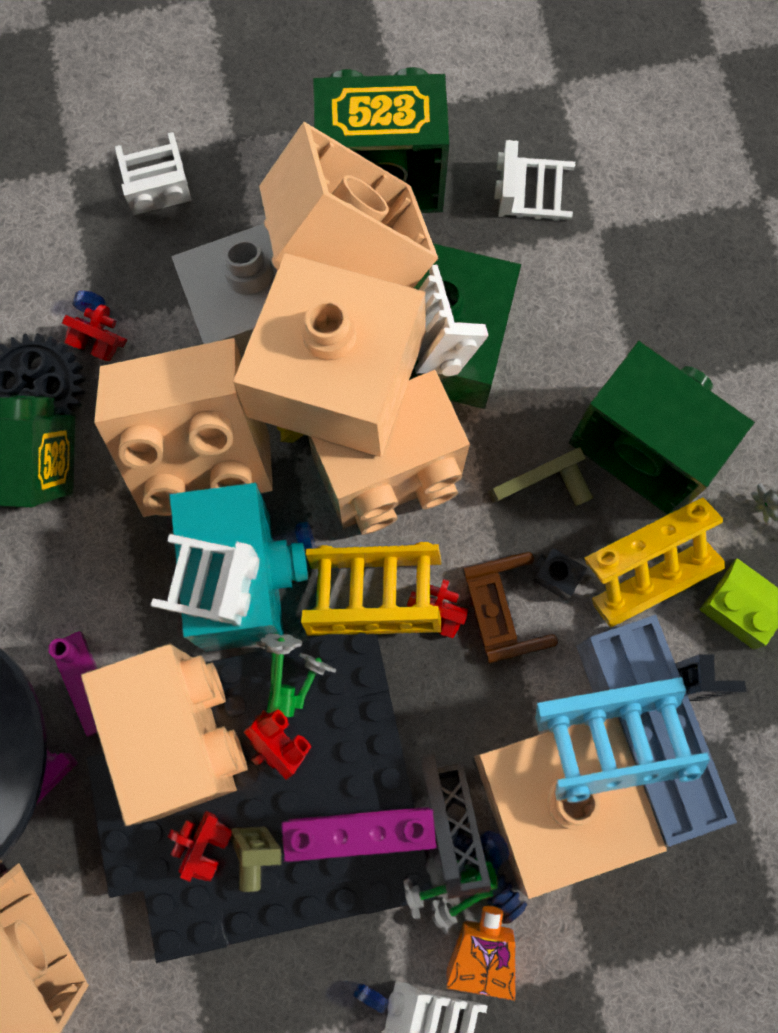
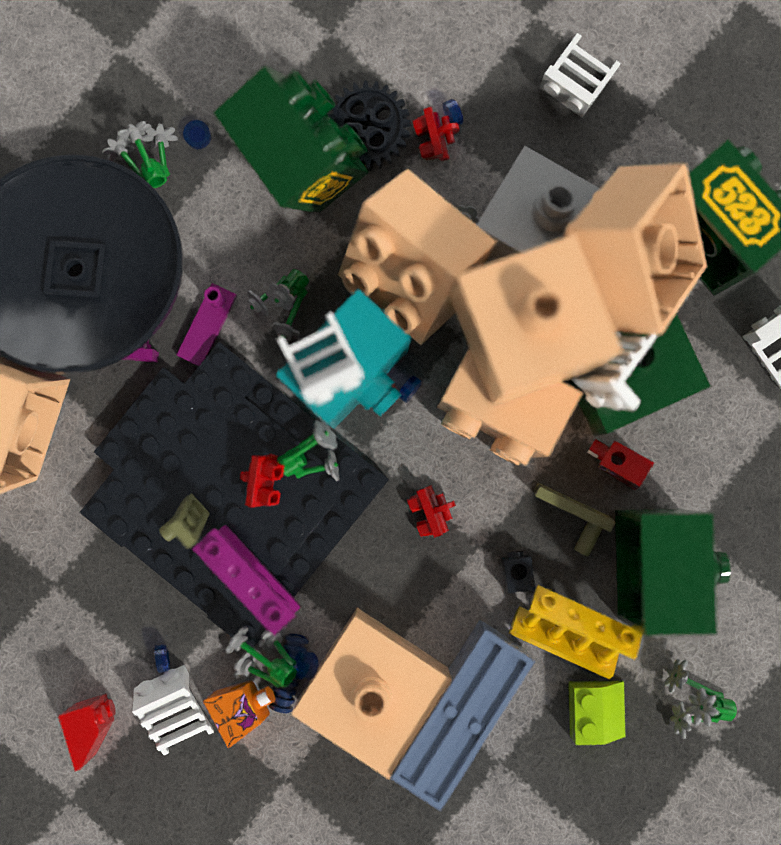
camera: 50 degrees right, 10 degrees up
(117, 582) = (283, 295): none -> plant
(162, 733) = (208, 412): light nougat brick -> none
(195, 863) = (153, 487): red hips -> none
(386, 618) = (397, 485): yellow fence -> none
(442, 830) = (292, 626): black fence -> none
(493, 611) = (460, 547): reddish brown plate -> none
(541, 393) = (633, 467): none -> red torso
(629, 705) = (458, 689): medium azure fence -> none
(700, 680) = (513, 721): black fence -> none

